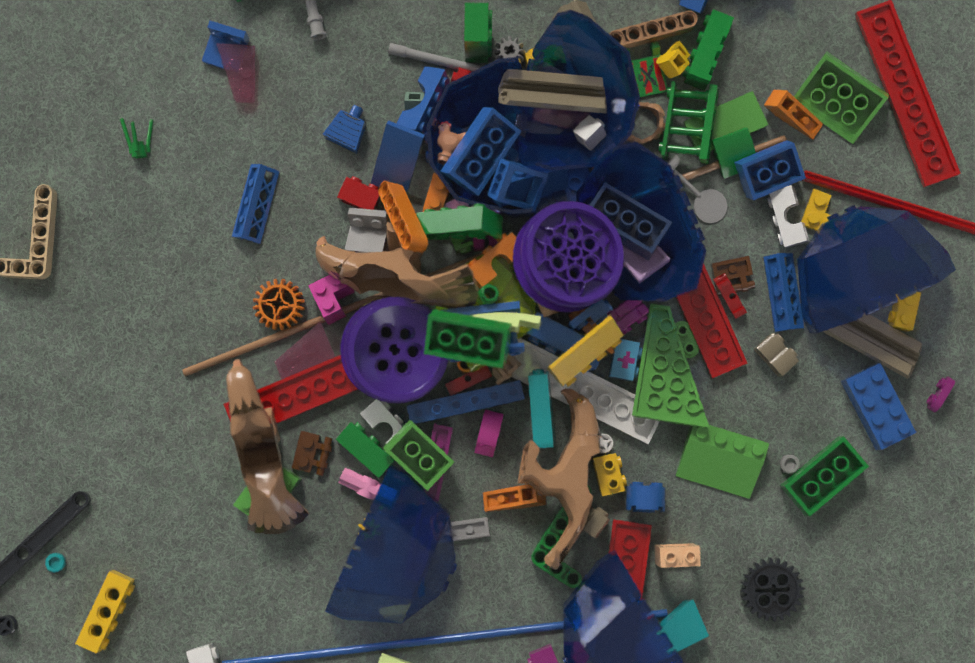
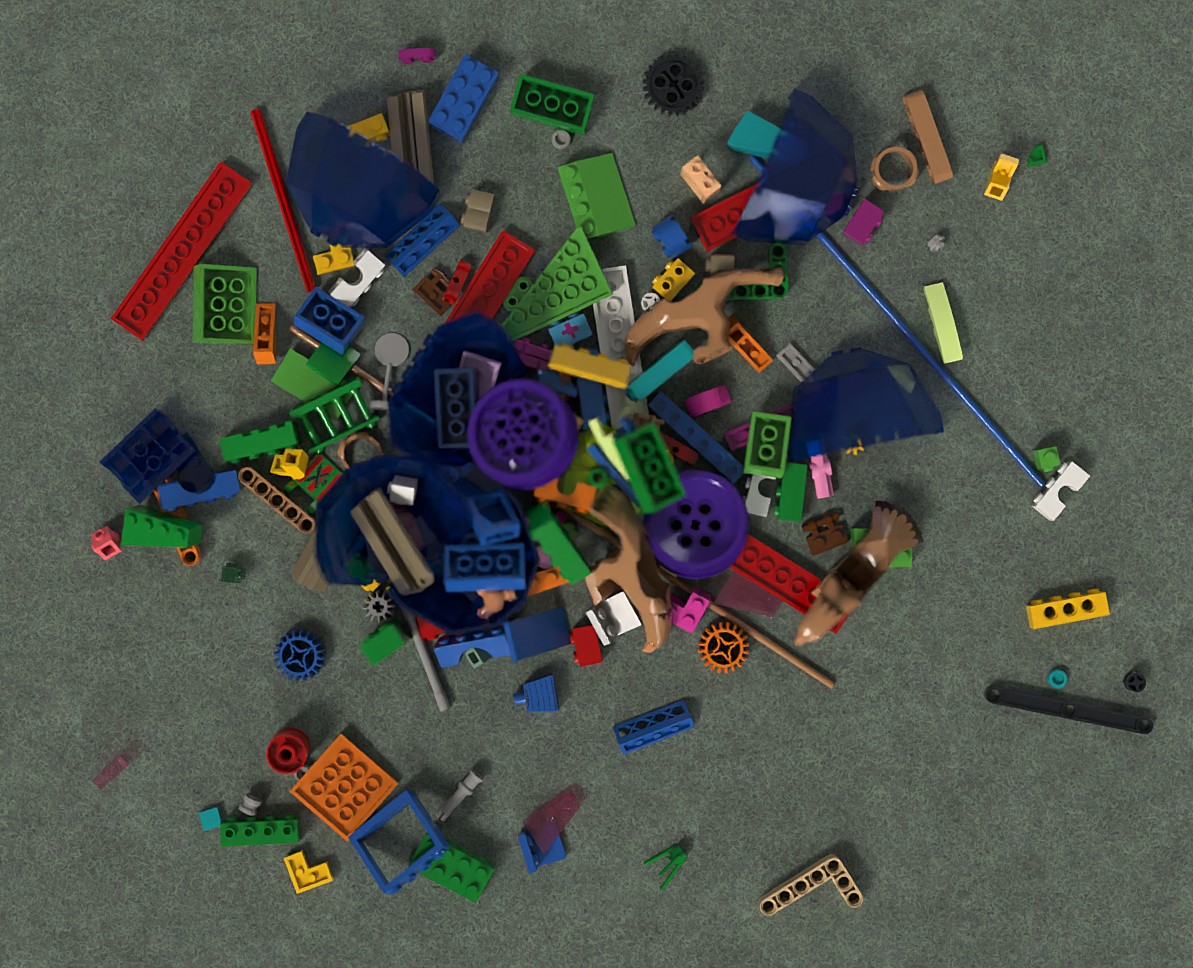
camera: 125 degrees left, 5 degrees up
(403, 217) = (582, 594): orange beam -> none

